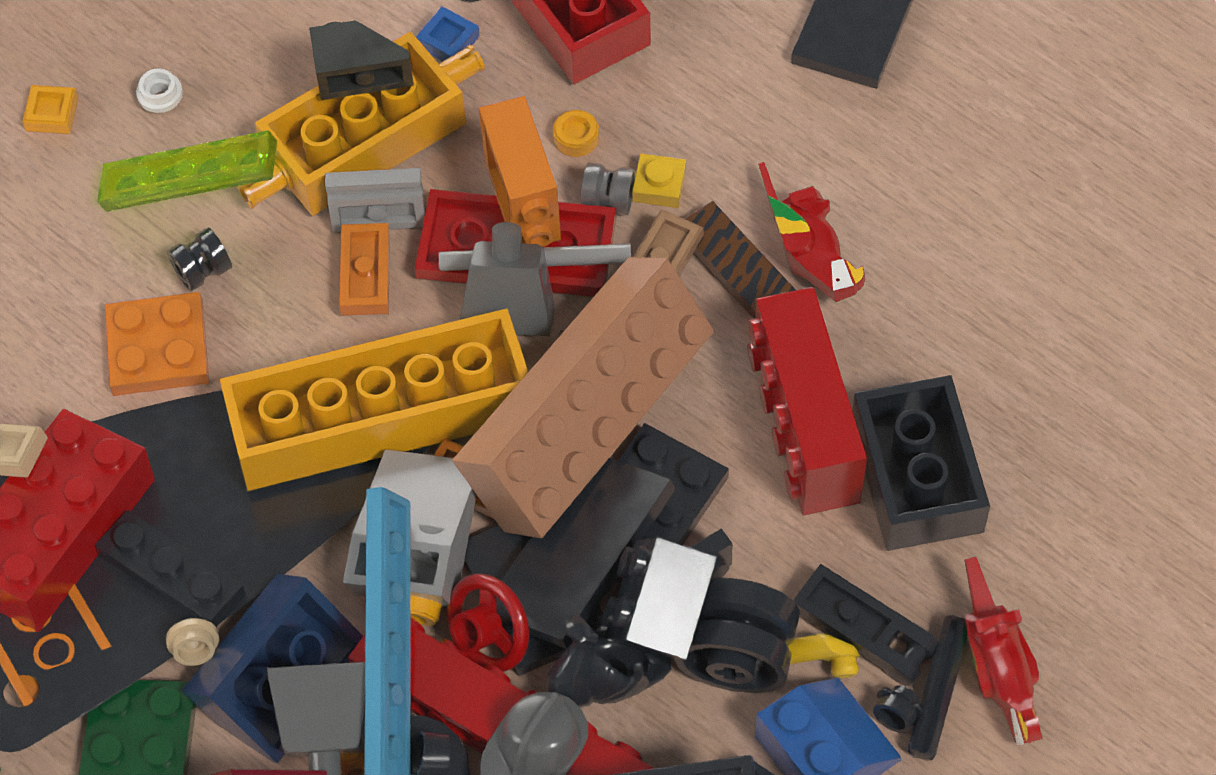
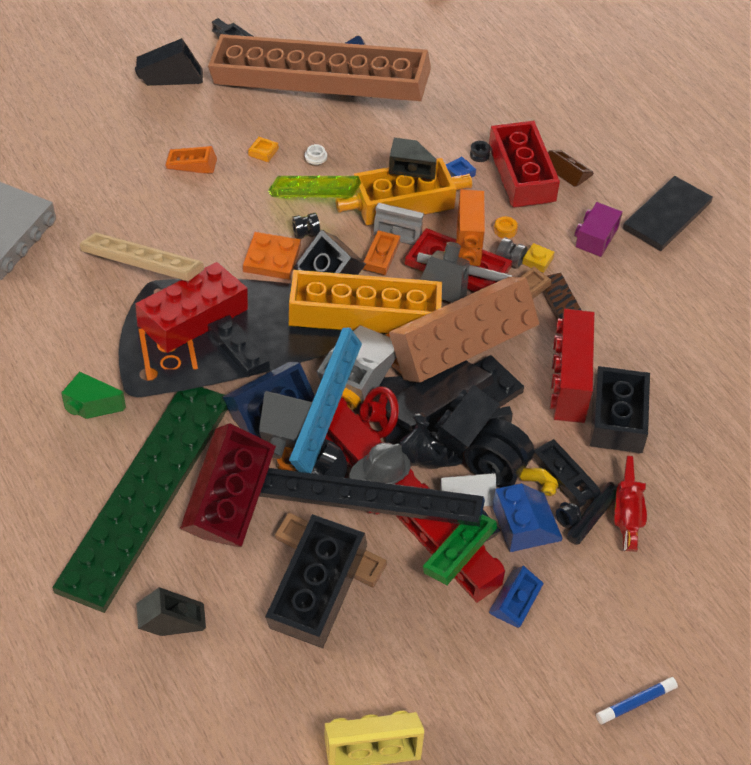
camera: 15 degrees right, 10 degrees down
(192, 641) = (233, 380): tan plate -> none
(273, 322) = (329, 255): none -> black slope
(704, 725) = (479, 485): none -> white slope
(749, 83) = (598, 229): none -> magenta brick
(812, 242) = (603, 302): red animal -> none

